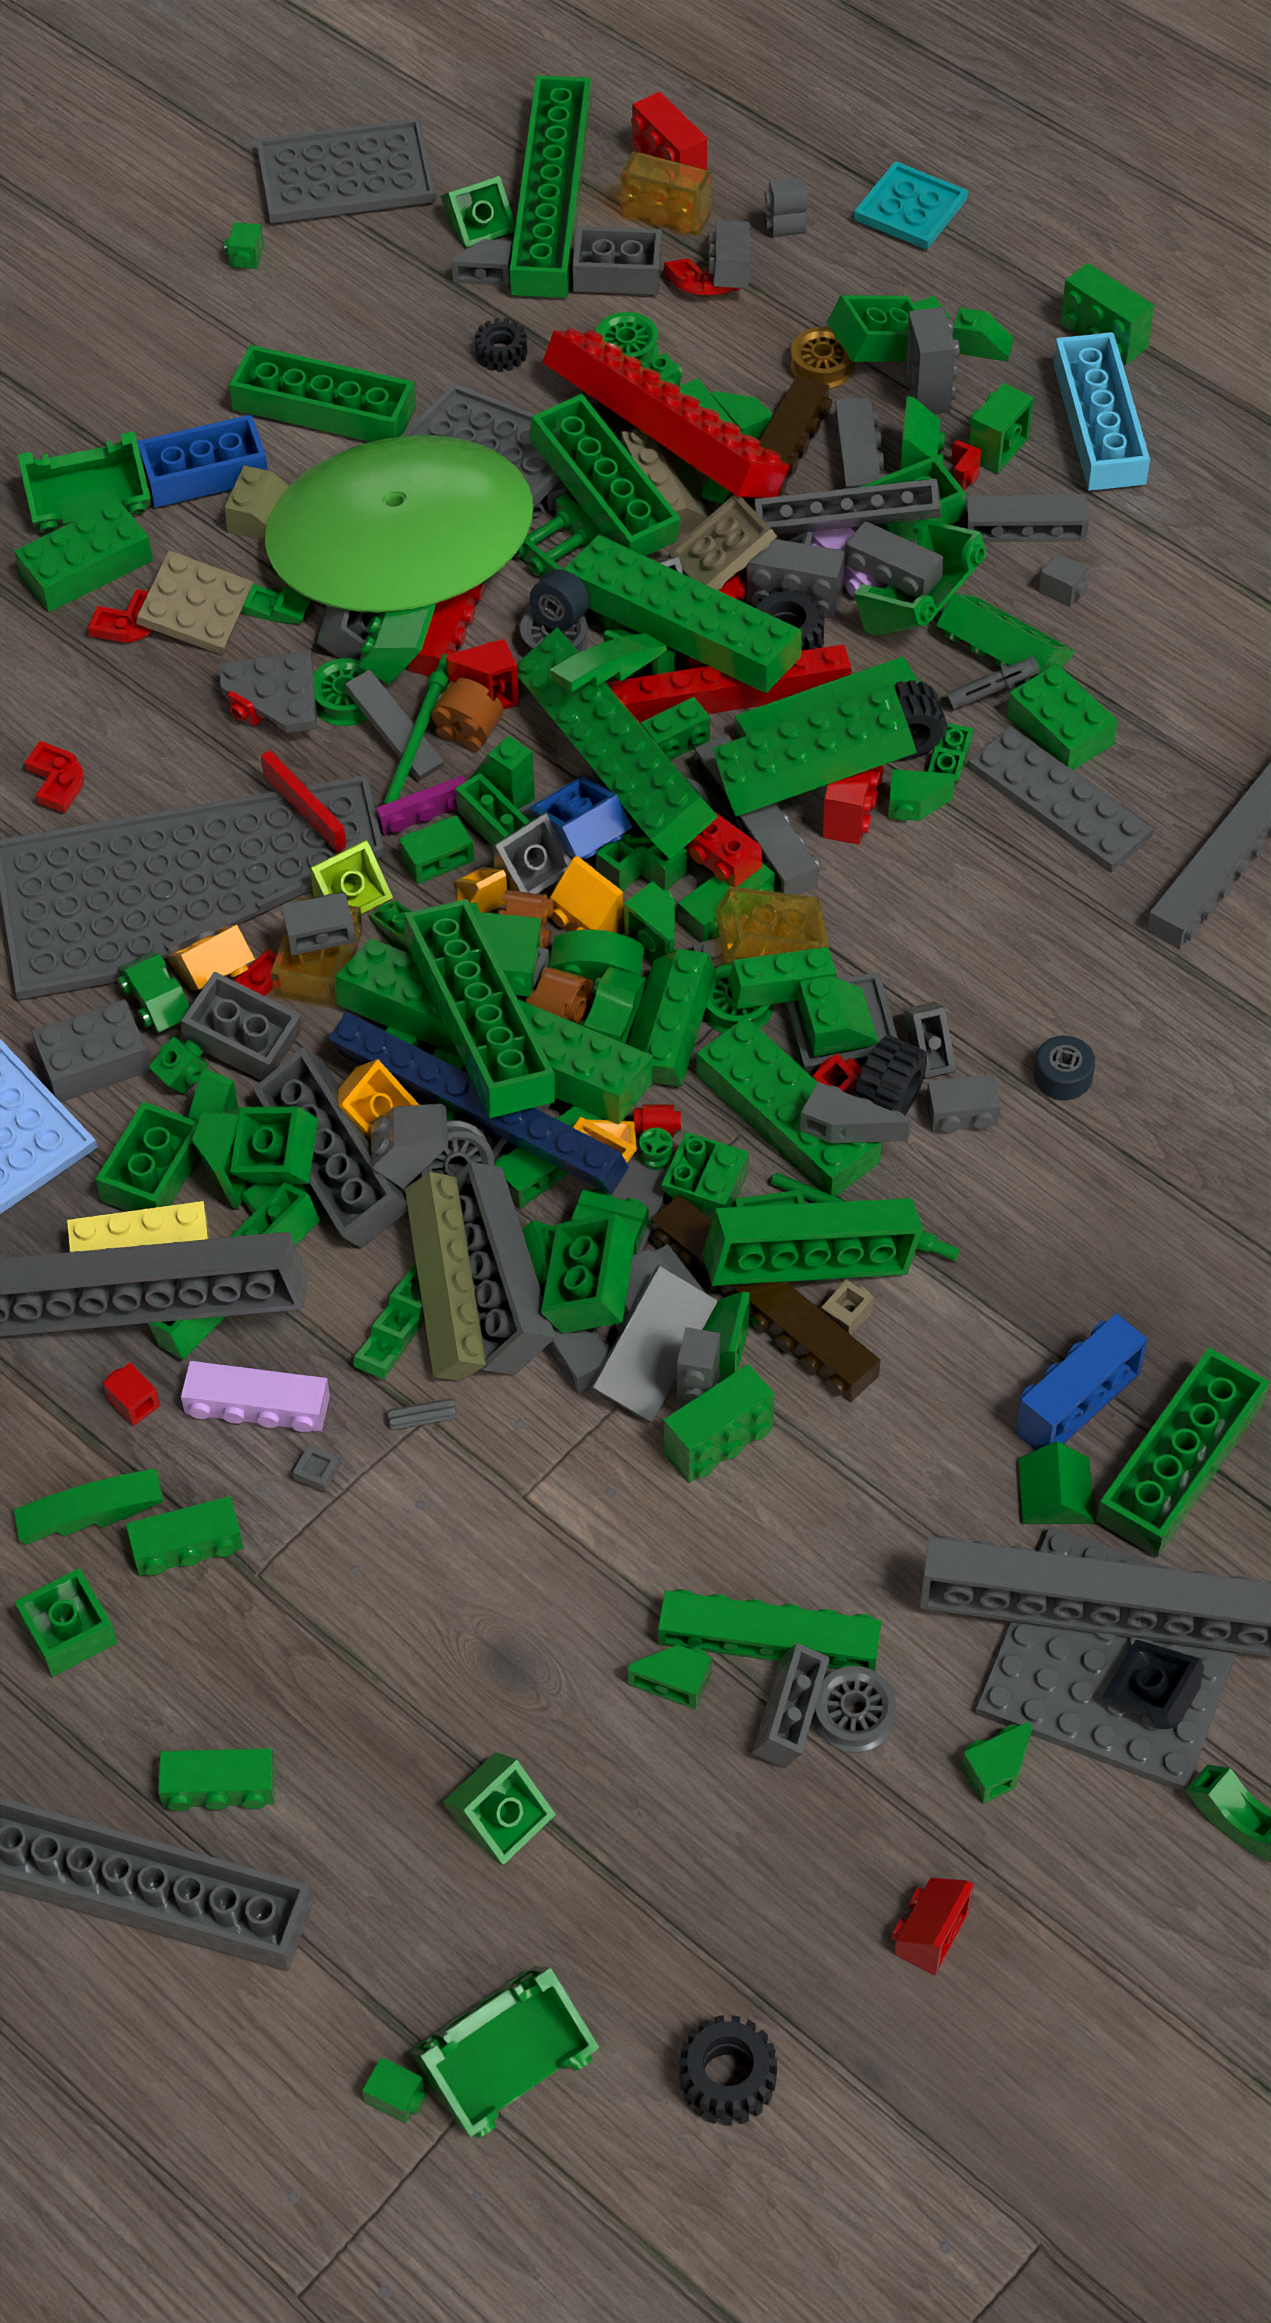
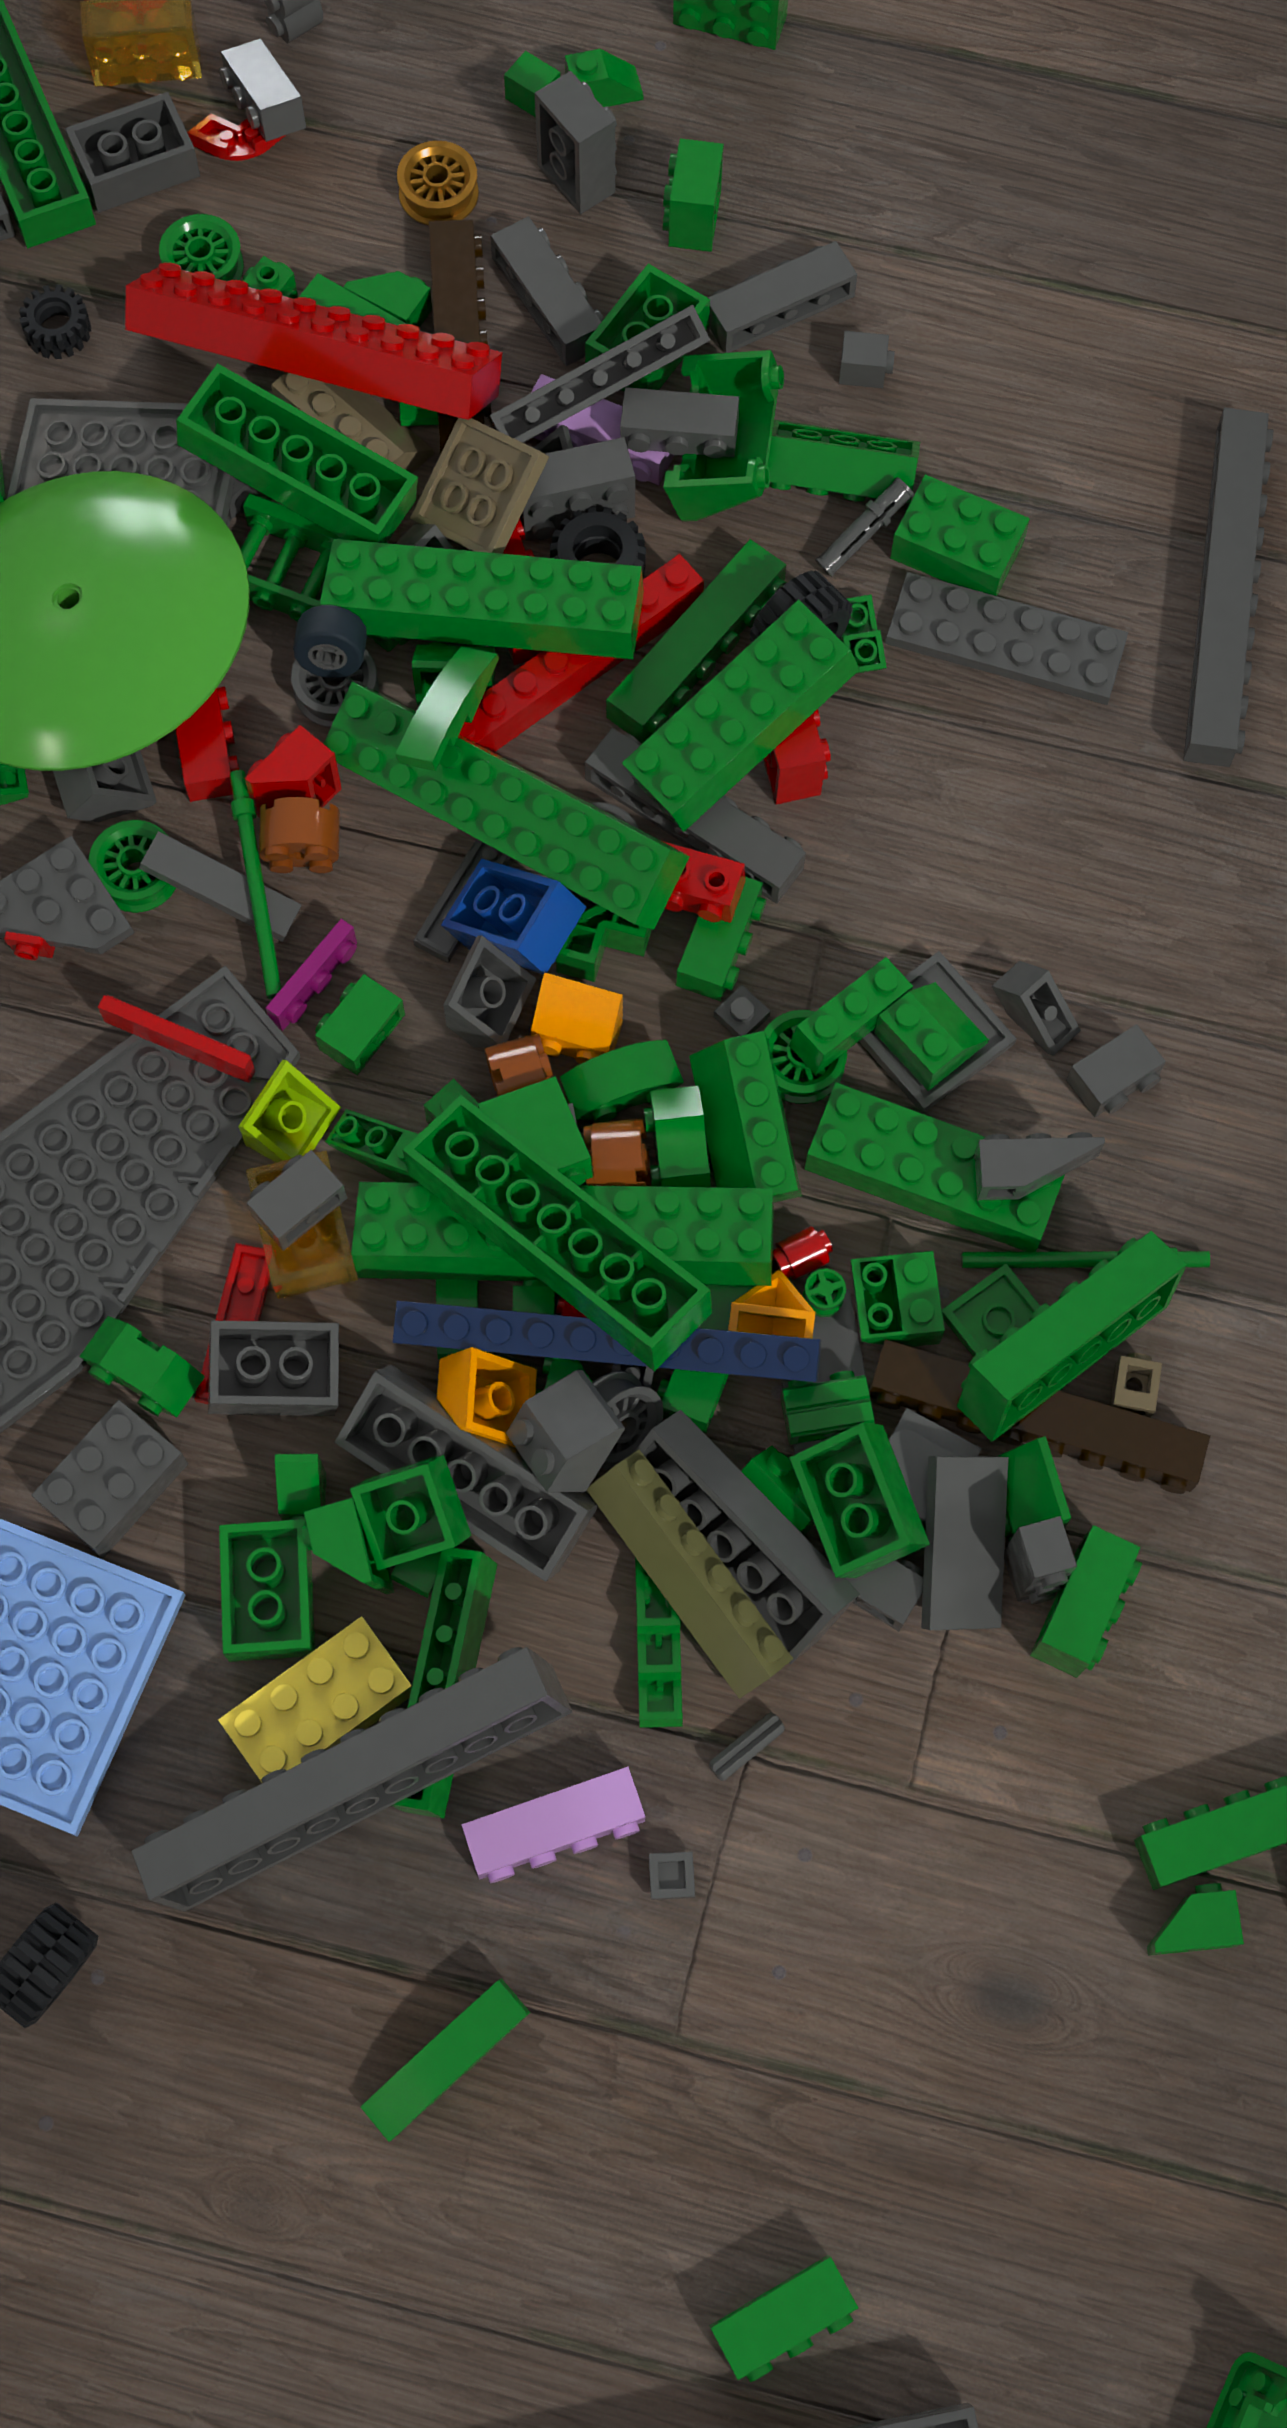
camera: 30 degrees left, 15 degrees up
(66, 1622) = (508, 2223): green brick -> none
(131, 1393) = (409, 1892): red brick -> none
(179, 1064) = (225, 1448): green brick -> none
(185, 1536) = (577, 2041): green brick -> none
(220, 953) = (182, 1290): light orange slope -> none
(394, 641) = (168, 781): green slope -> none
(483, 886) = (436, 1054): light orange slope -> none
(488, 809) = (406, 954): green brick -> none
(499, 1807) = (1104, 2183): green slope -> none
(510, 771) = (389, 896): green slope -> none
(651, 920) = (670, 1012): green slope -> none
(680, 728) = (550, 741): green brick -> none
(768, 923) = (801, 957): clear yellow brick -> none
(835, 1068) = (985, 1117): red brick -> none
(872, 326) = (487, 121): green brick -> none
(892, 1074) = (1036, 1087): black tyre -> none
(918, 793) = (855, 706): green slope -> none
(920, 434) = (611, 249): green slope -> none
(966, 462) = (675, 247): red bracket -> none
(1064, 1067) = (1190, 988): black wheel -> none
(1101, 411) = (791, 124): medium azure brick -> none

